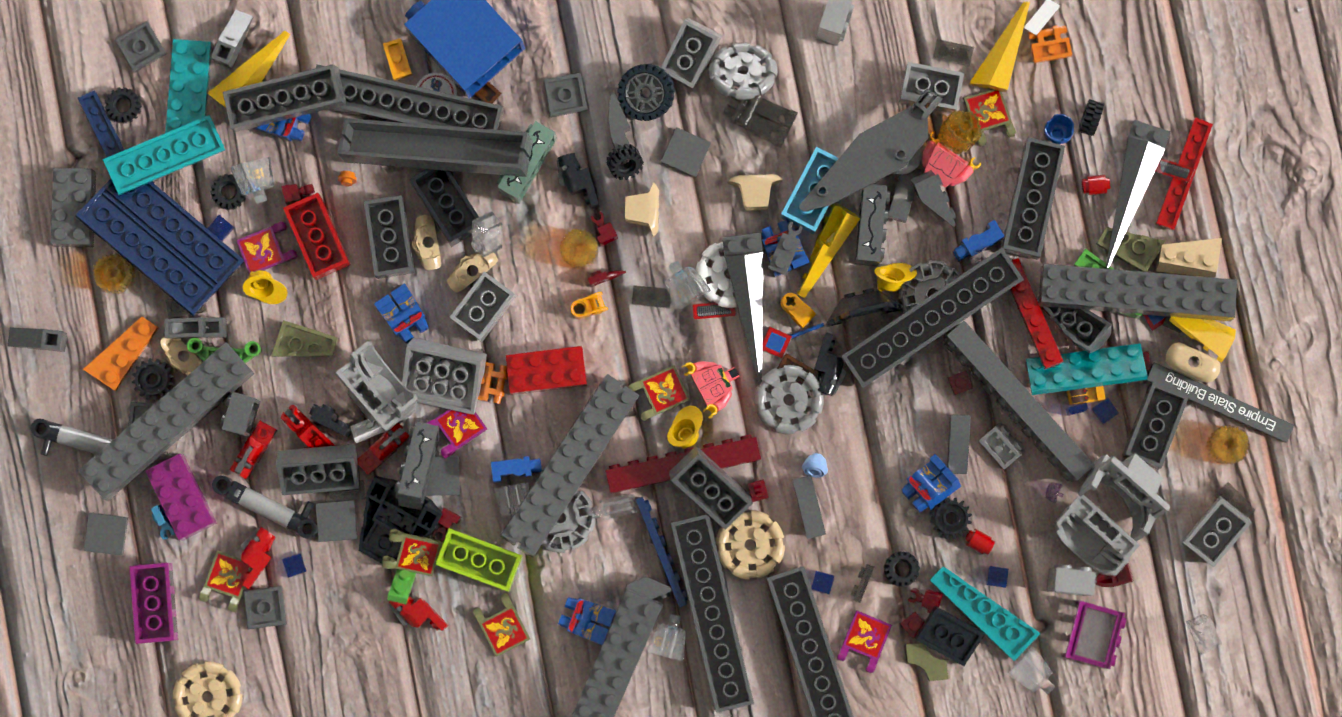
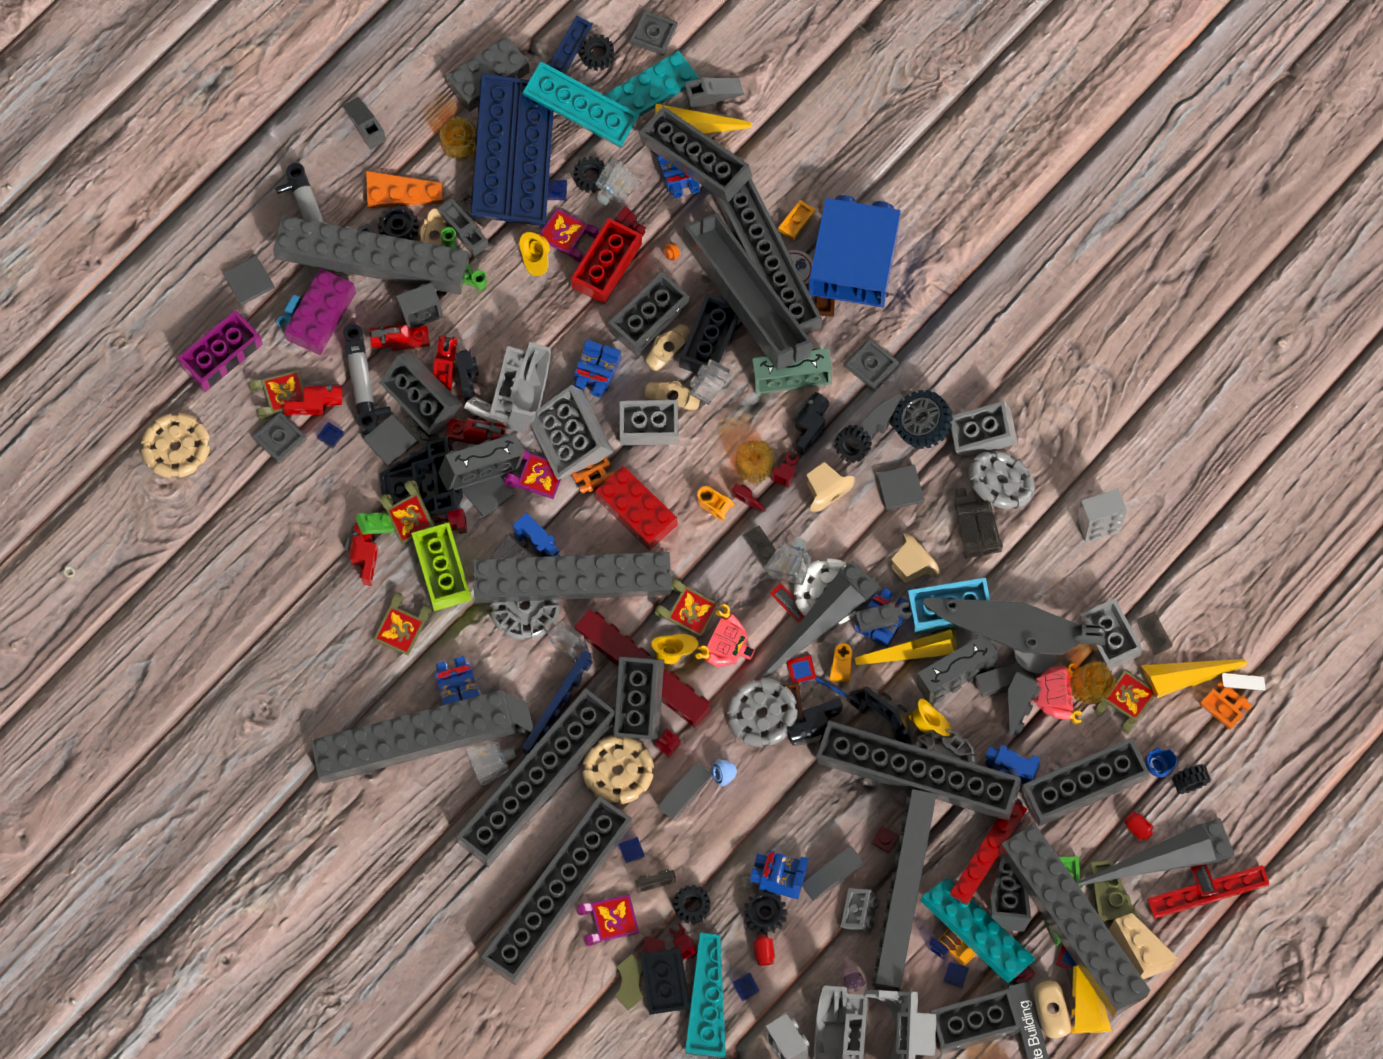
camera: 55 degrees right, 15 degrees down
(303, 342) = (514, 312): olive wing -> none

